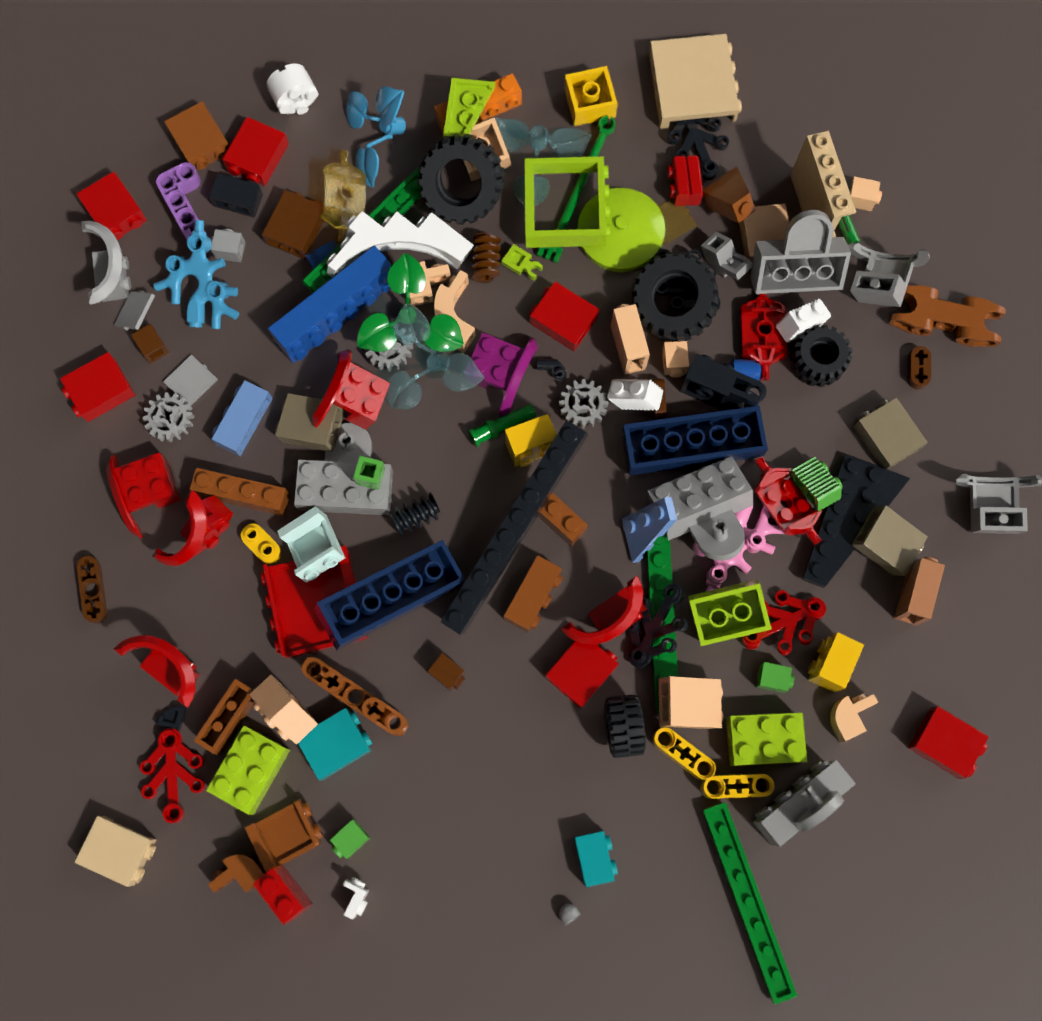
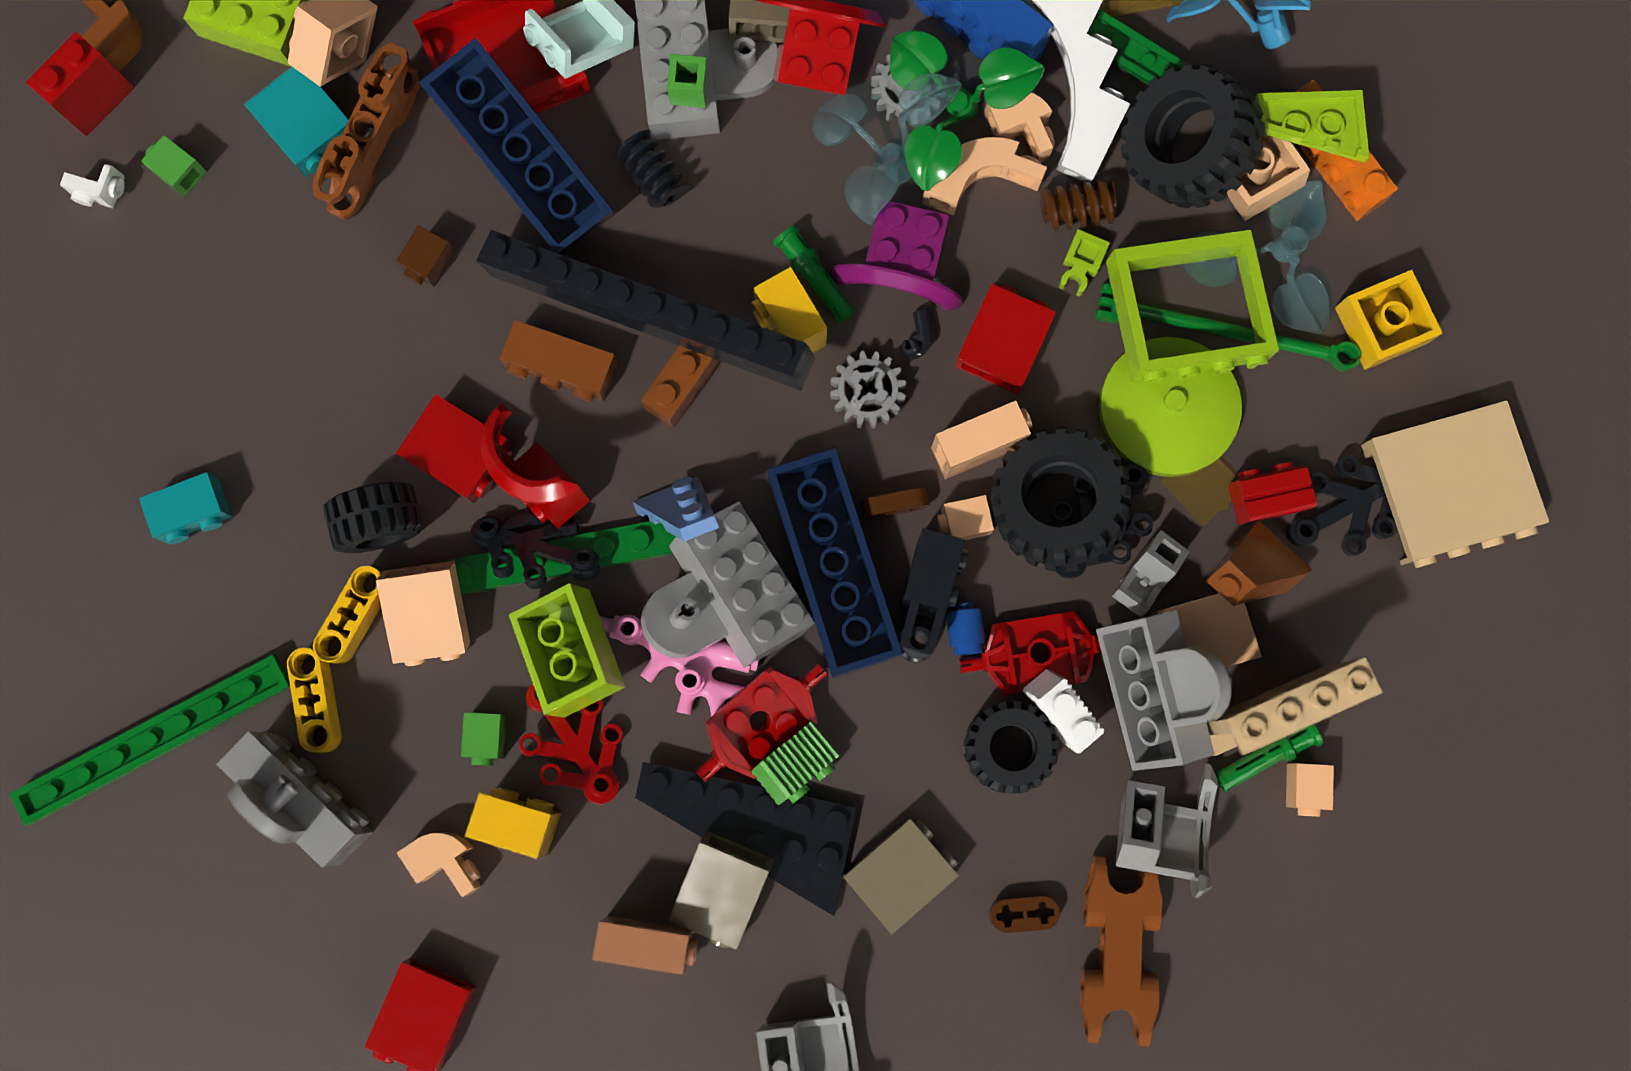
camera: 80 degrees right, 5 degrees up
(284, 835) = (168, 77): dark orange panel -> none
(568, 913) = (108, 484): light grey hinge -> none
(635, 394) = (890, 461): white brick -> none
(766, 739) = (387, 734): lime brick -> none

